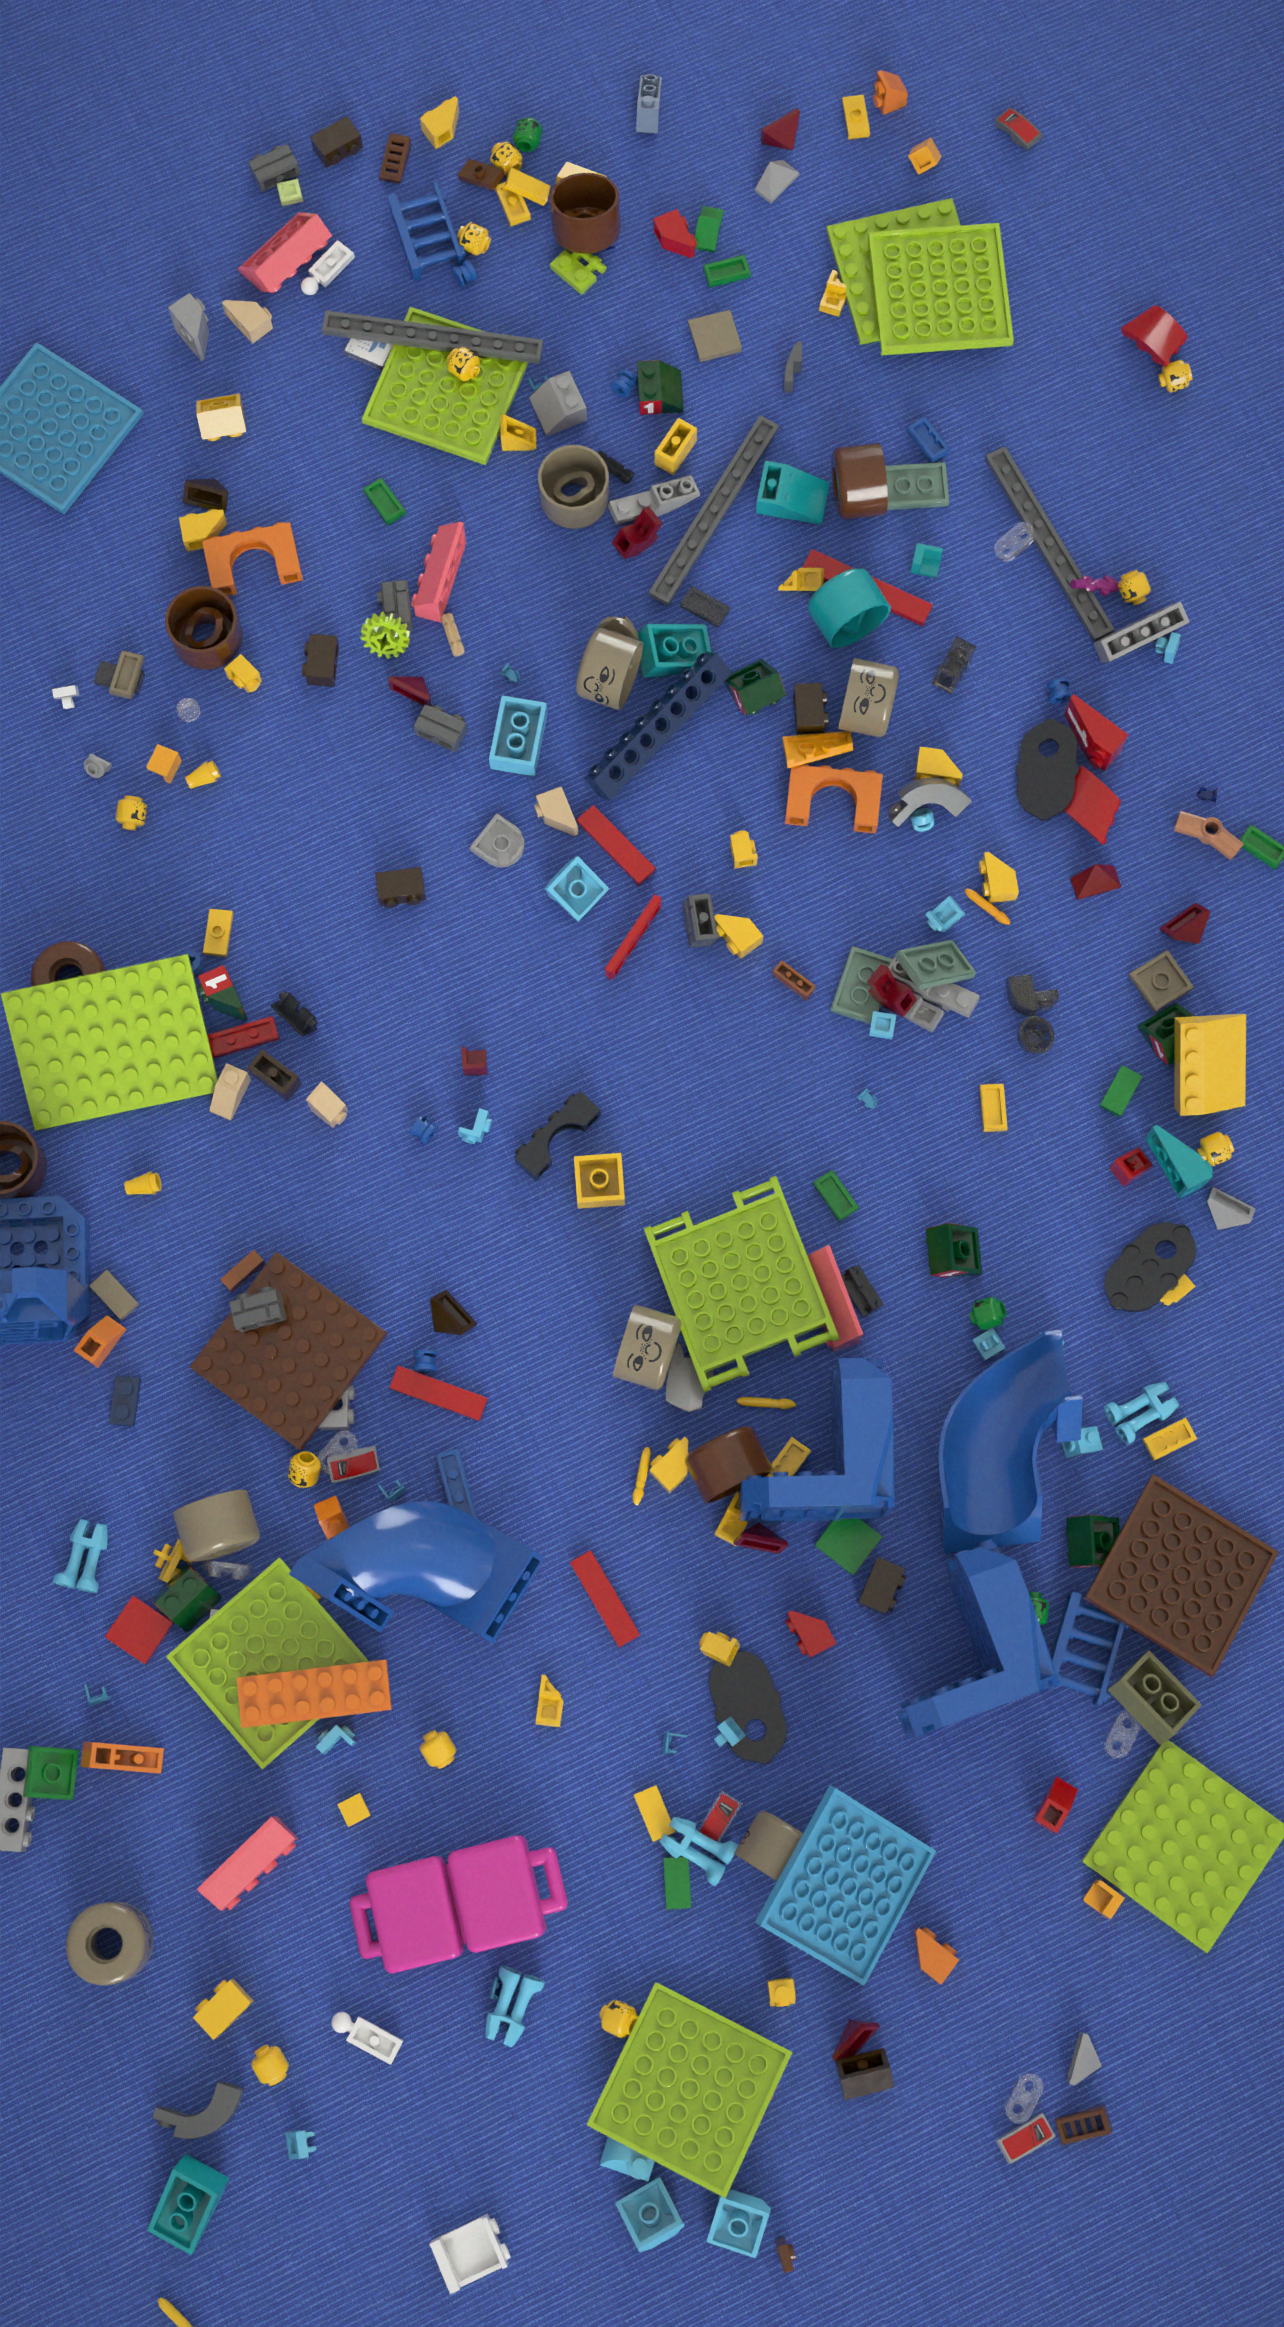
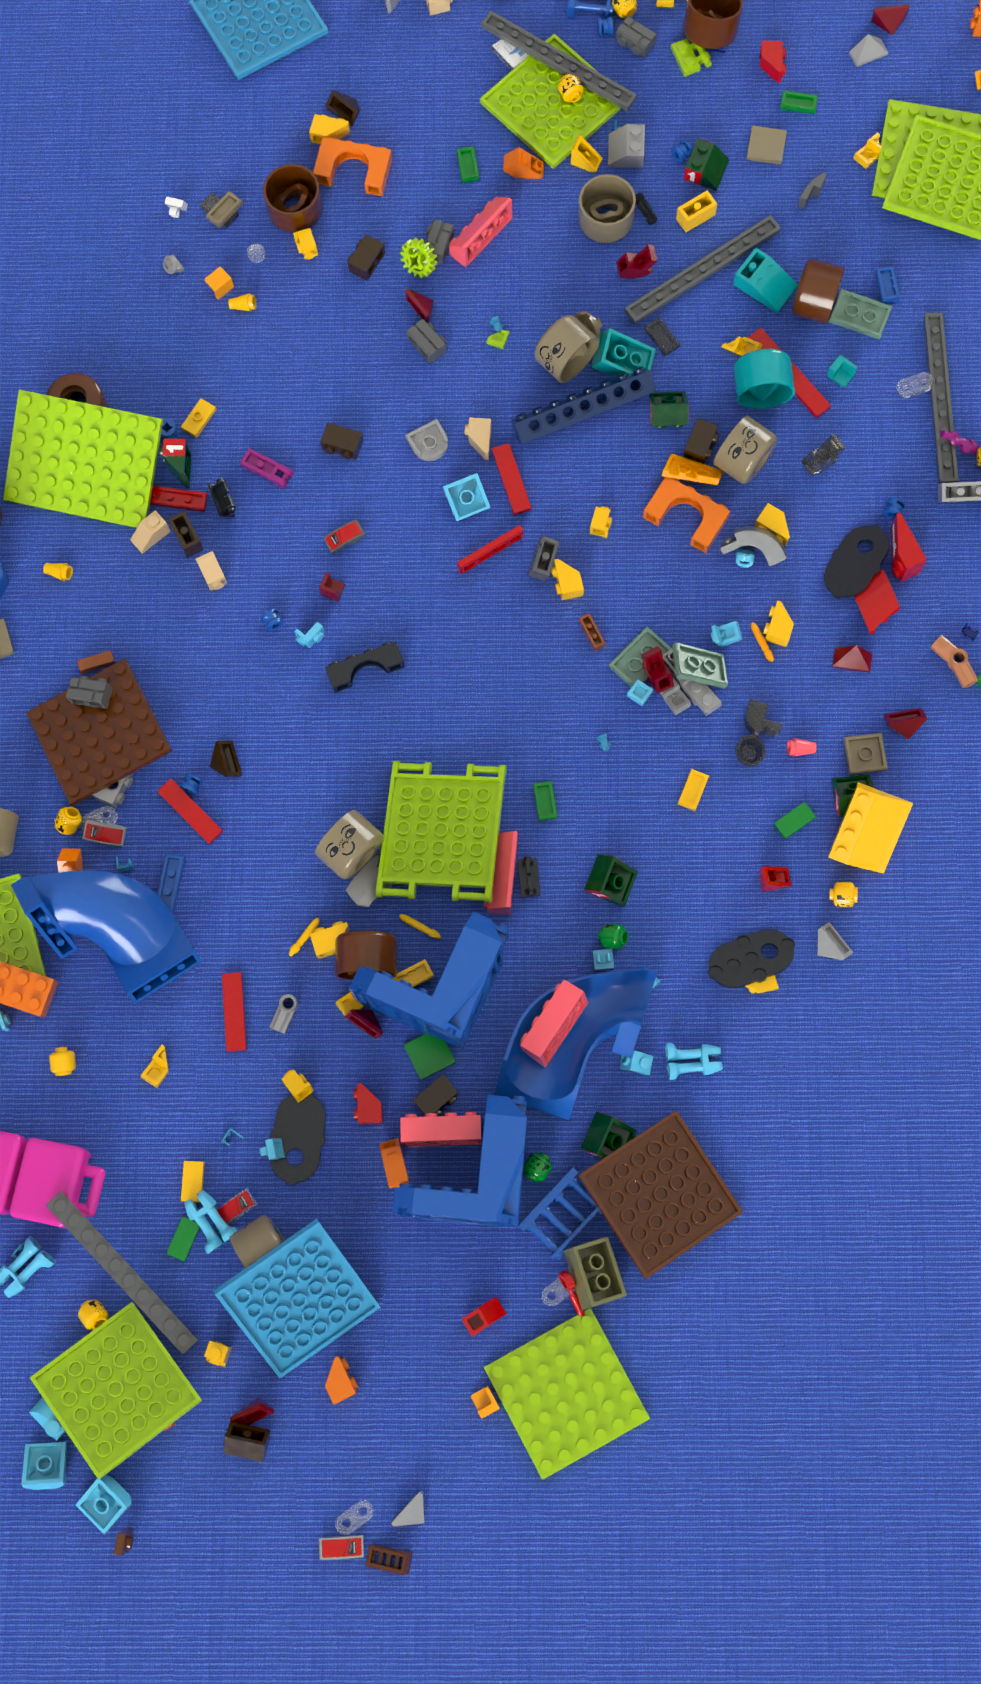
camera: 30 degrees right, 0 degrees up
(131, 812) = (179, 307): yellow head -> none
(221, 417) = (380, 57): slope -> none
(327, 956) = (266, 467): none -> magenta plate
(450, 475) = (523, 164): none -> orange slope
(452, 634) = (469, 279): tan axle -> none
(458, 995) = (344, 535): none -> slope
(506, 272) = (636, 37): none -> dark grey brick
(518, 736) = (478, 369): medium azure brick -> none
(521, 688) = (498, 339): none -> lime tile
(599, 1180) = (377, 711): yellow brick -> none
(630, 1954) = (121, 1272): none -> dark grey plate
(661, 499) = (666, 245): light grey slope -> none
(664, 1576) = (284, 1016): none -> light grey piece
(708, 228) = (800, 65): green slope -> none
(856, 117) = (951, 29): yellow plate -> none
(875, 1682) = (394, 1163): none -> orange slope
(908, 1620) = (441, 1130): none -> coral slope
(977, 1440) = (554, 1022): none -> coral slope
(1086, 1007) = (800, 747): none -> coral cone
(1132, 1722) = (569, 1284): none -> red piece
(1169, 1439) = (702, 1091): yellow plate -> none
(1180, 1163) = (811, 893): teal slope -> none

